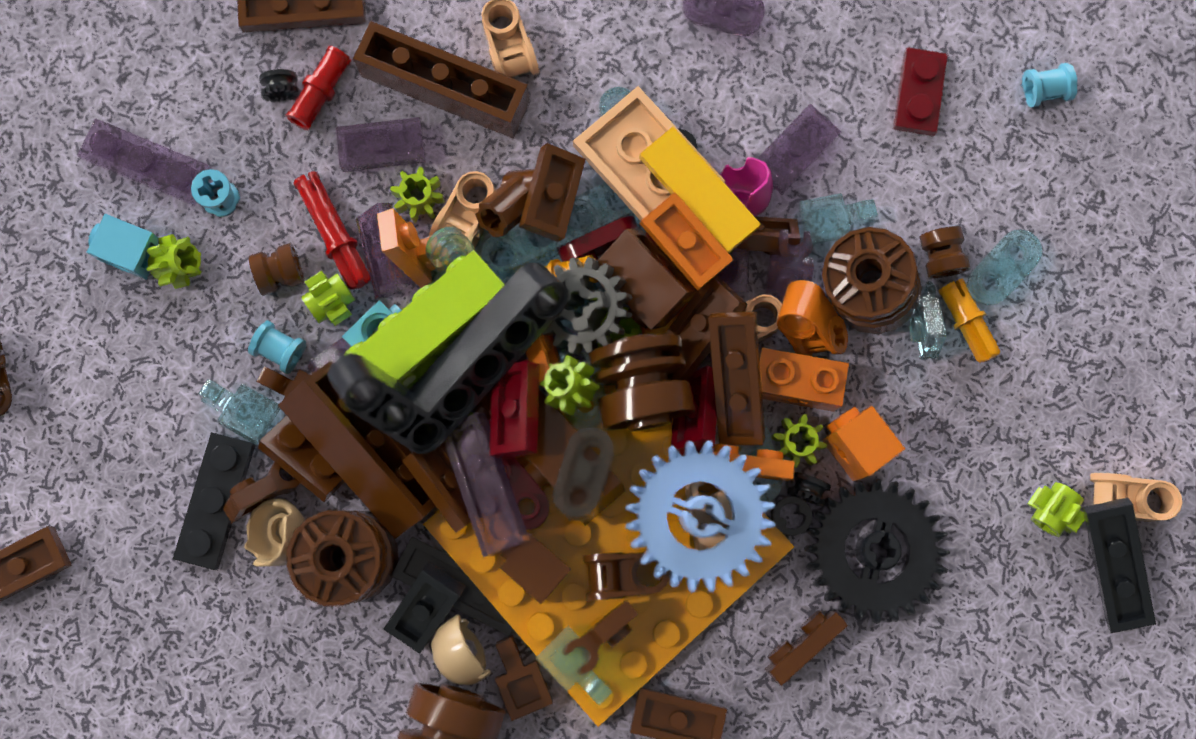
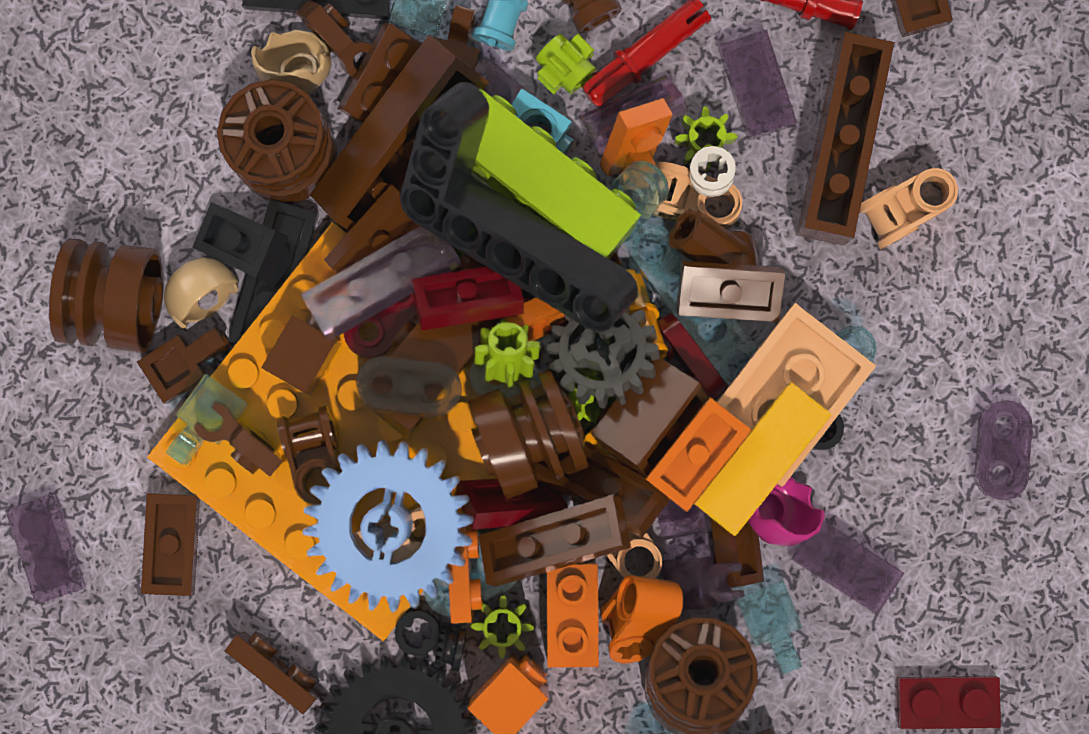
camera: 80 degrees right, 5 degrees up
(440, 177) = (724, 180): none -> white bush

